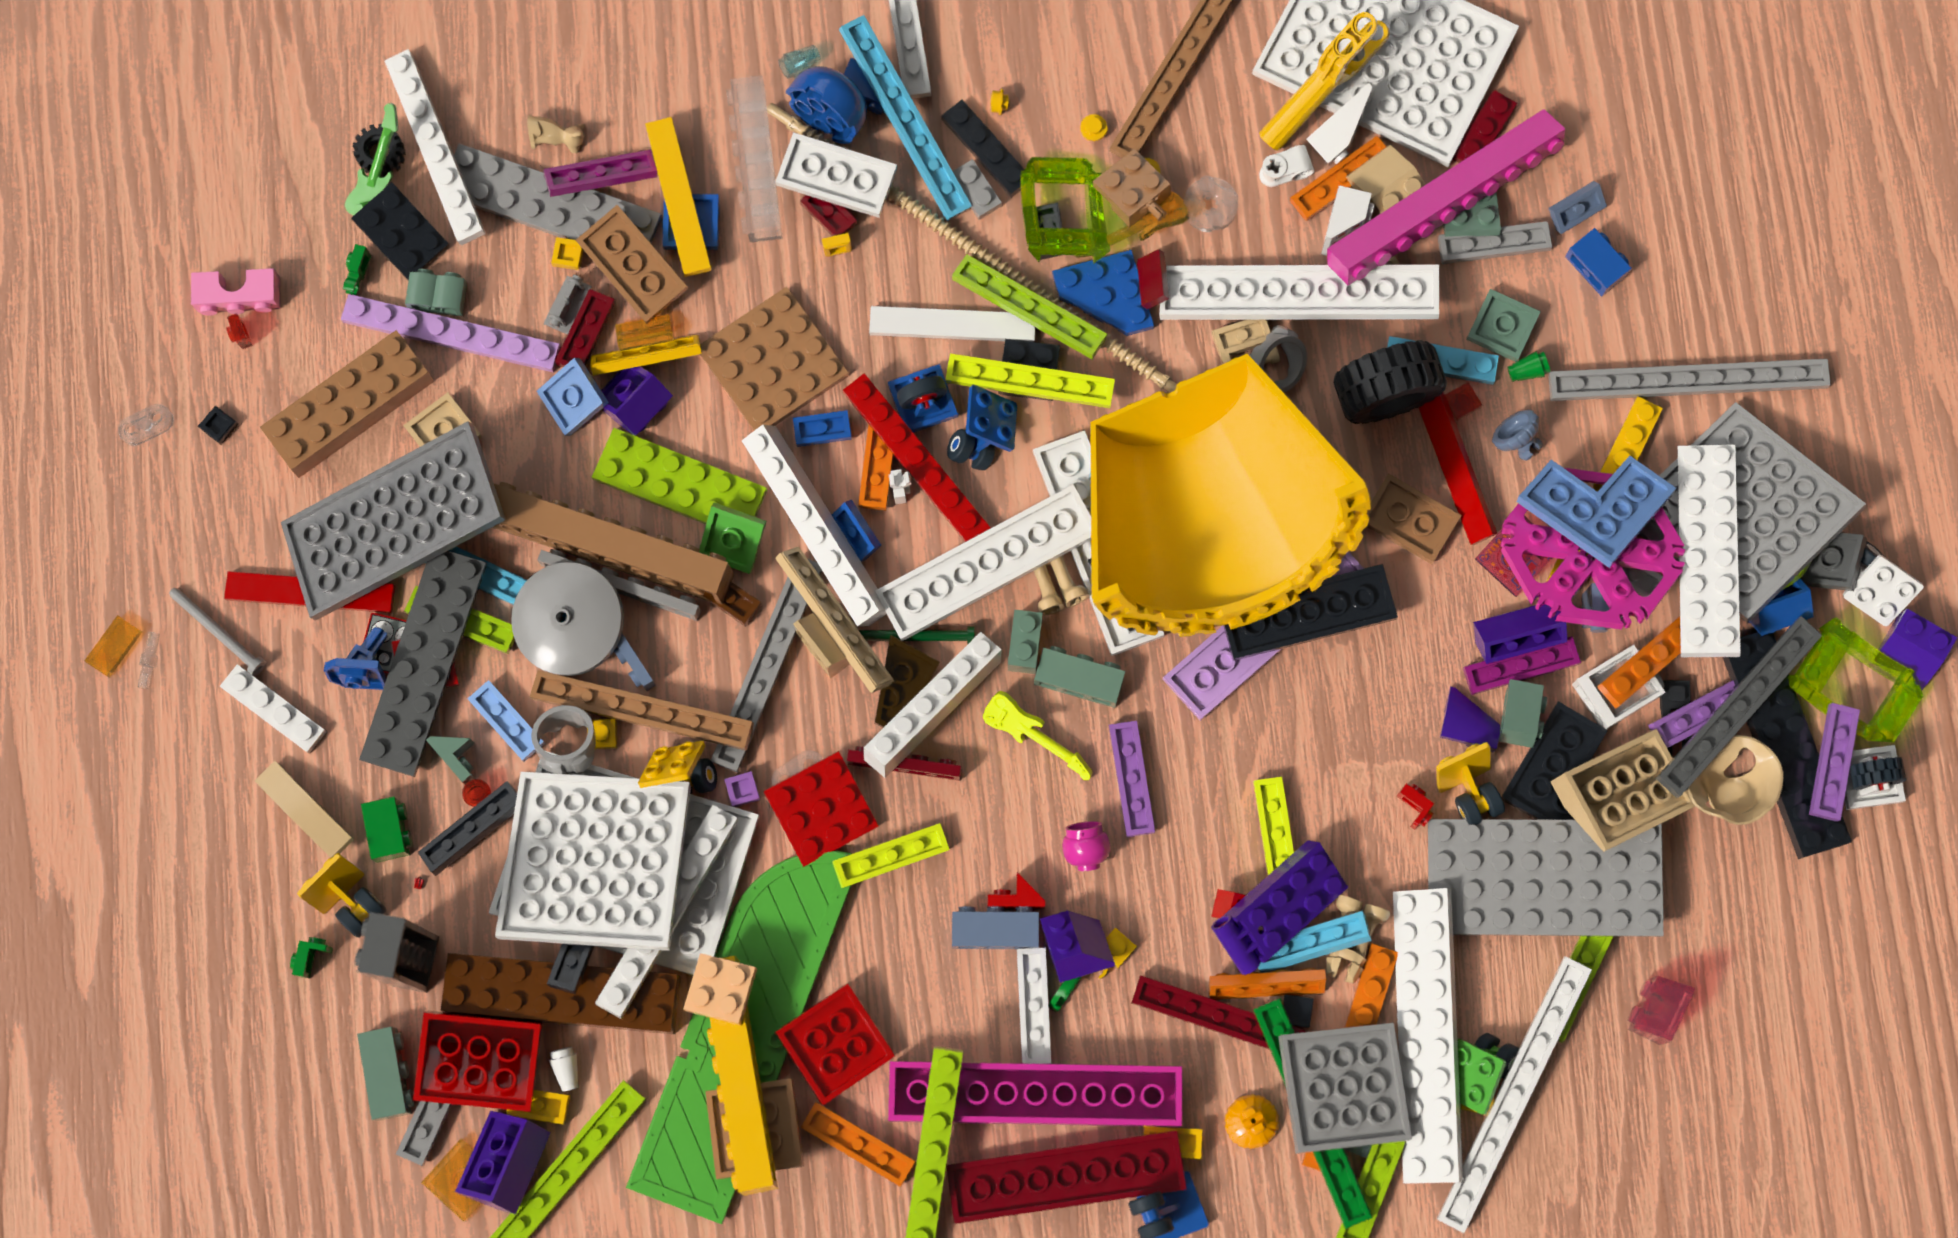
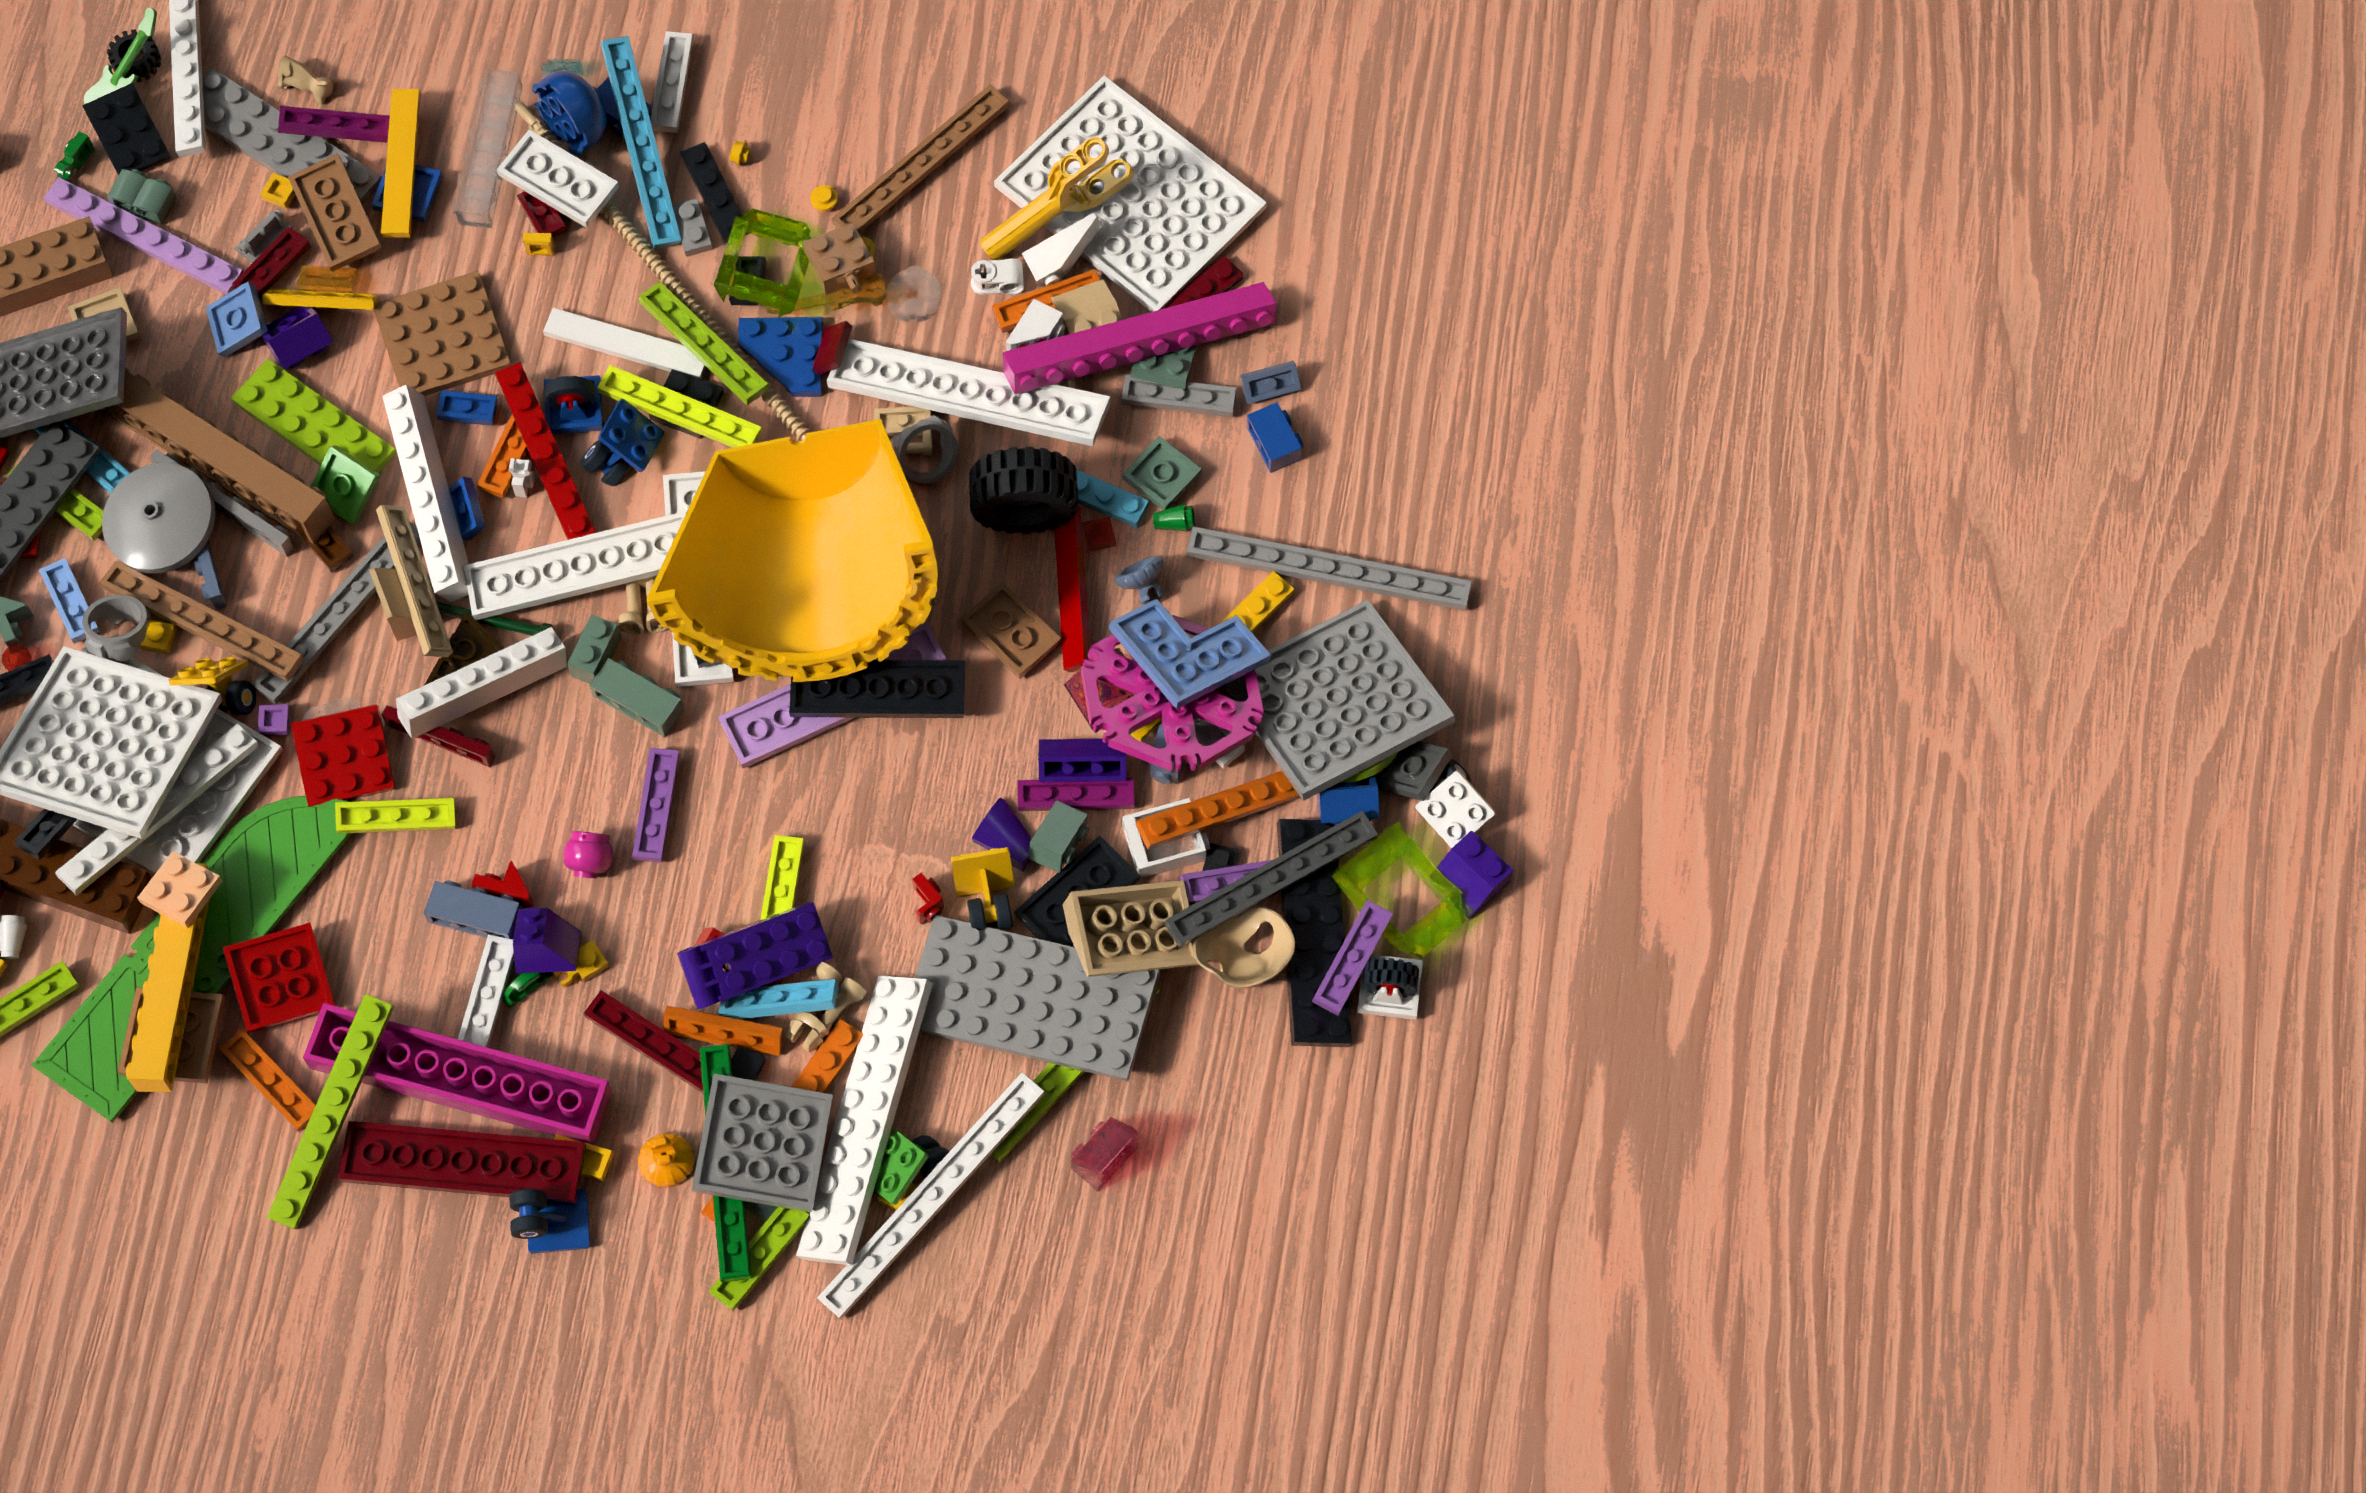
camera: 10 degrees right, 10 degrees down
(1007, 715) = (552, 714): neon yellow piece -> none
(1711, 551) = (1287, 725): white plate -> none

